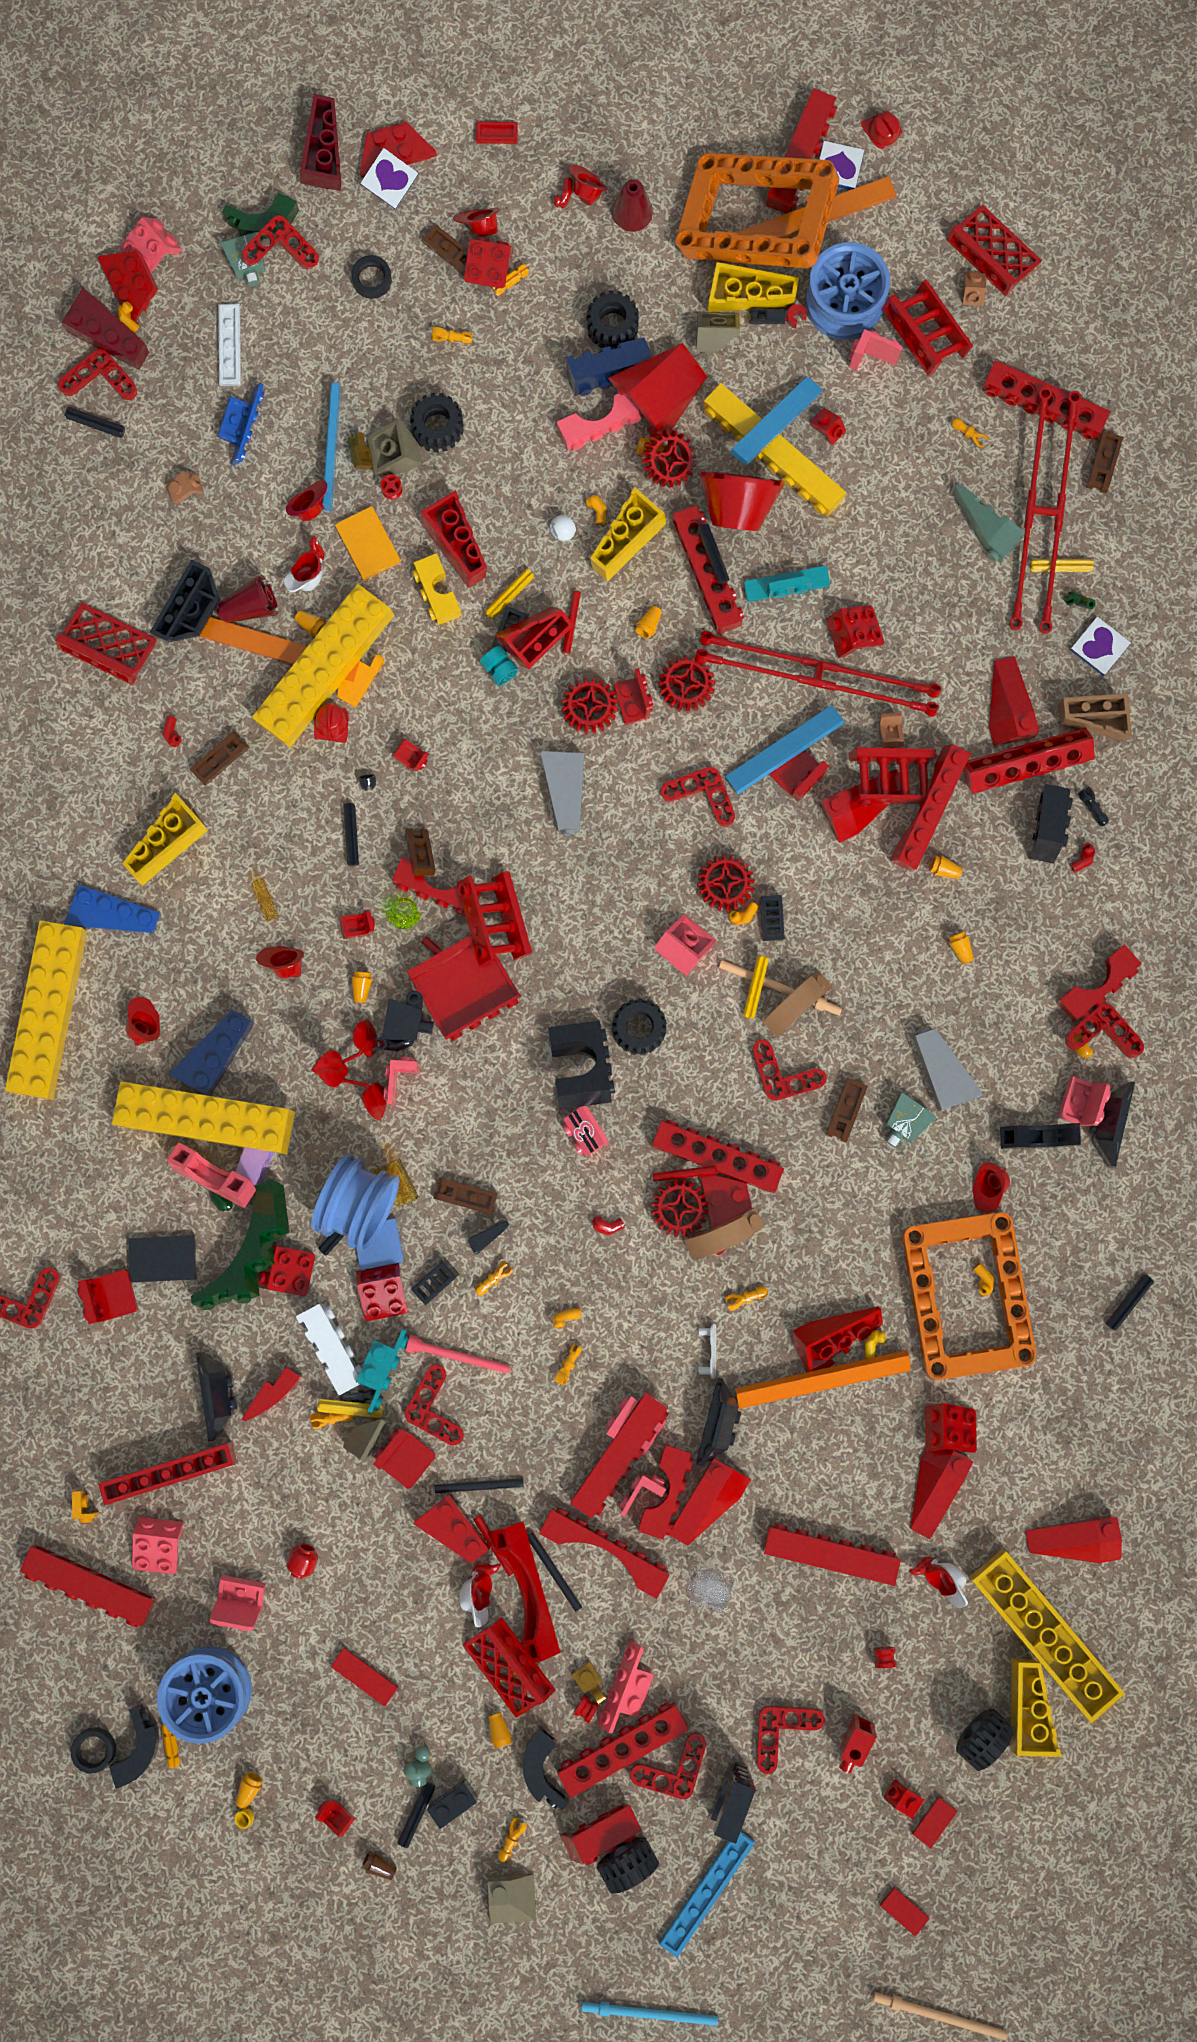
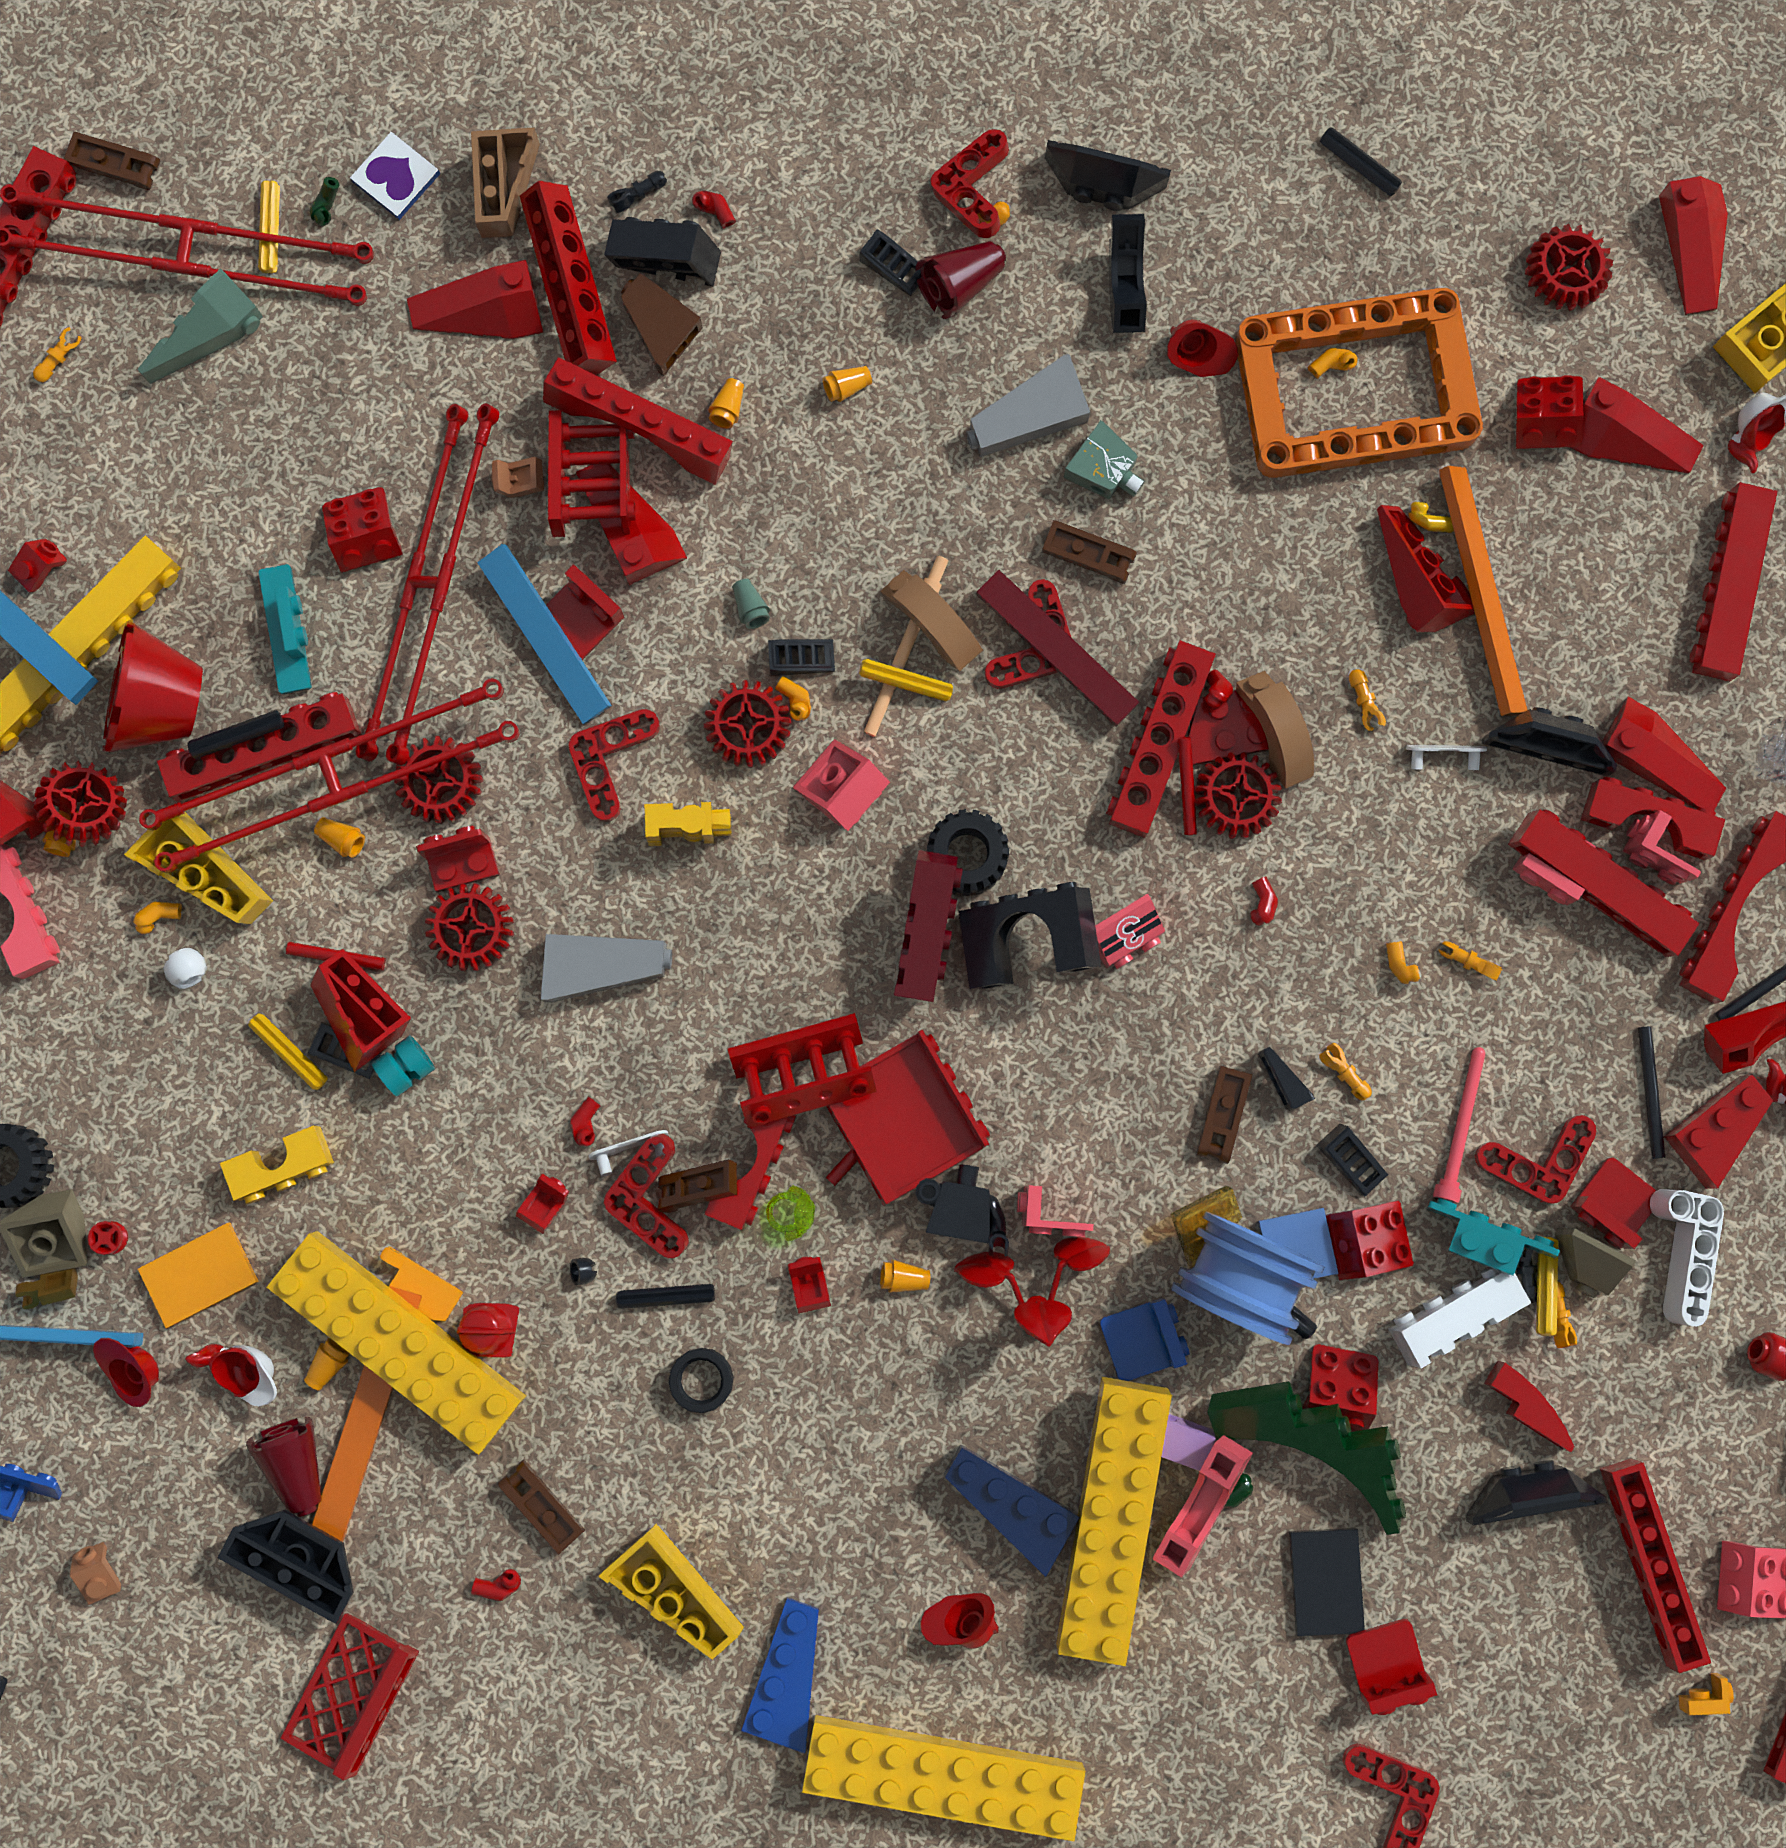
camera: 90 degrees left, 0 degrees up
(265, 900) = (768, 1430): clear yellow axle -> none
(282, 960) = (863, 1402): red piece -> none
(292, 841) = (680, 1395): none -> black tyre
(318, 1141) = (1144, 1339): none -> blue bracket
(367, 1502) = (1687, 1259): none -> white beam
(415, 813) = (634, 1195): none -> red beam
(441, 793) = (602, 1154): none -> white piece
(453, 535) = (188, 1140): red wedge -> none
(462, 779) = (581, 1123): none -> red arm
(482, 1526) = (1722, 1080): red bar -> none
(587, 997) = (926, 925): none -> dark red wedge
(657, 847) = (689, 822): none -> yellow hips
(696, 609) = (336, 792): none -> red bar
(750, 1196) = (1219, 691): none -> red arm
(778, 1087) = (1057, 648): none -> dark red tile
(806, 884) = (750, 605): none -> sand green cone
(1000, 821) = (660, 321): none -> reddish brown slope
(1038, 1023) = (958, 275): none -> dark red cone
(1046, 967) = (876, 263): none -> black slope
(1063, 1439) = (1556, 246): none -> red gear
(1084, 1102) = (1077, 210): coral bracket -> none
(1119, 966) = (876, 160): red arch -> none

